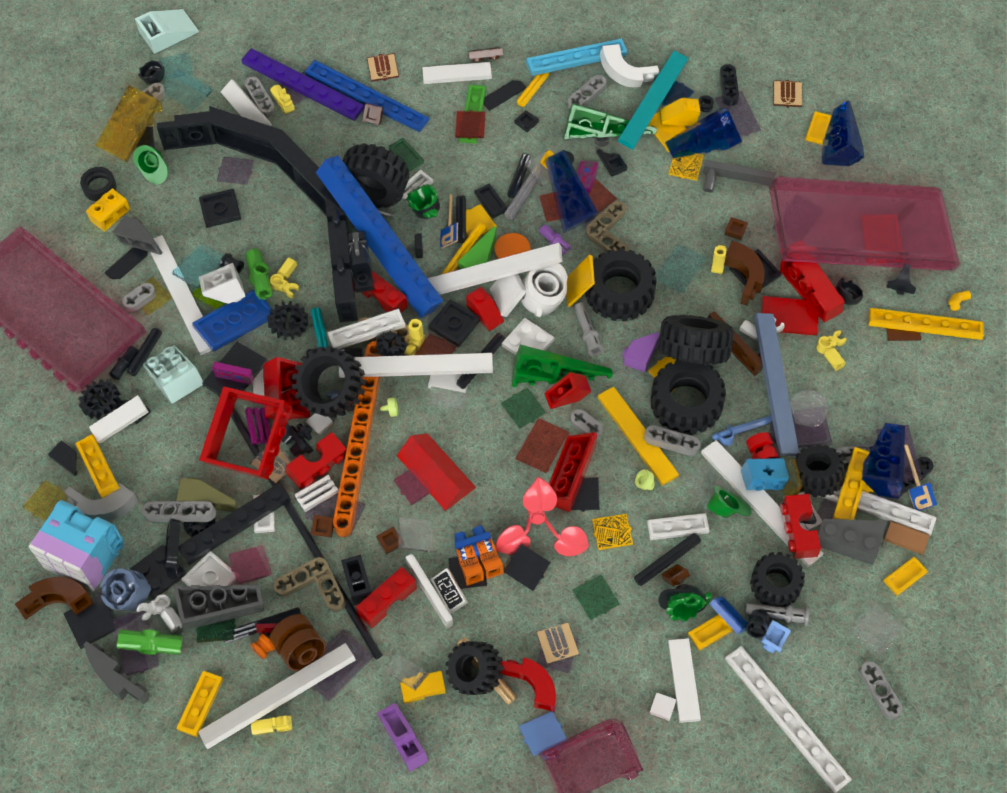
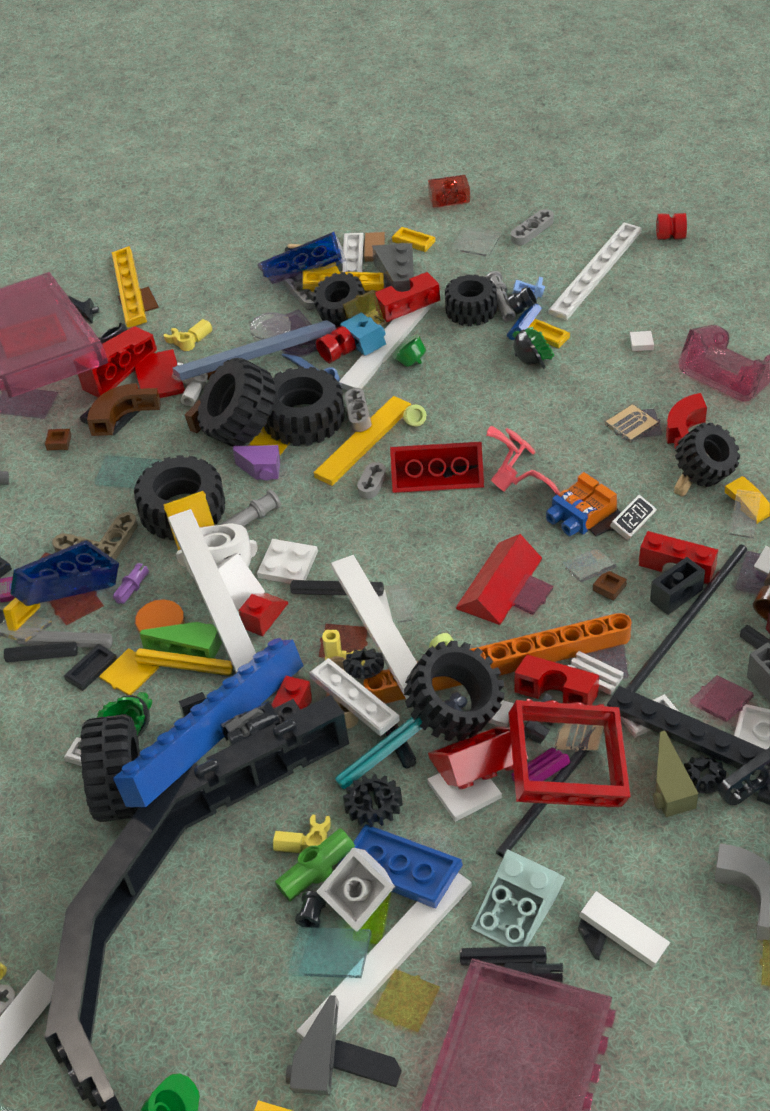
camera: 110 degrees left, 15 degrees down
(64, 456) = (714, 974): black tile -> none
(97, 466) = (706, 915): yellow tile -> none
(101, 389) = (623, 962): black gear -> none
(139, 297) = (418, 1007): light grey beam -> none
(178, 513) = (712, 790): light grey beam -> none
(219, 208) = (215, 979): black tile -> none
(233, 373) = (491, 807): magenta tile -> none
(235, 170) = (136, 992): clear purple piece -> none
(237, 356) = (481, 823): black tile -> none
(319, 577) = (697, 623): dark tan beam -> none
(322, 526) = (632, 647): reddish brown plate -> none
(407, 154) = (40, 786): clear green tile -> none
(429, 591) = (651, 523): white tile -> none
(449, 234) = (162, 686): piece -> none
(454, 323) = (297, 625): black plate -> none
(461, 218) = (133, 681): black axle -> none
(523, 408) = (377, 539): clear green piece -> none
(527, 567) = (565, 467): black piece -> none
(539, 365) = (316, 528): green wedge -> none
(542, 445) = (415, 508): clear red piece -> none
(542, 733) = (728, 404): medium blue piece -> none
(568, 390) = (340, 502): red slope -> none
(596, 597) = (563, 416): clear green piece -> none
(612, 531) = (479, 423): yellow piece -> none
(667, 559) = (492, 378): black axle -> none
(675, 575) = (507, 365): reddish brown plate -> none
(678, 526) = (451, 383): white tile -> none
(684, 680) = (605, 335): white tile -> none
(719, 259) = (113, 438): light yellow bar -> none
(956, 298) = (92, 273): yellow arm -> none
(974, 624) = (449, 191): none -> clear red brick

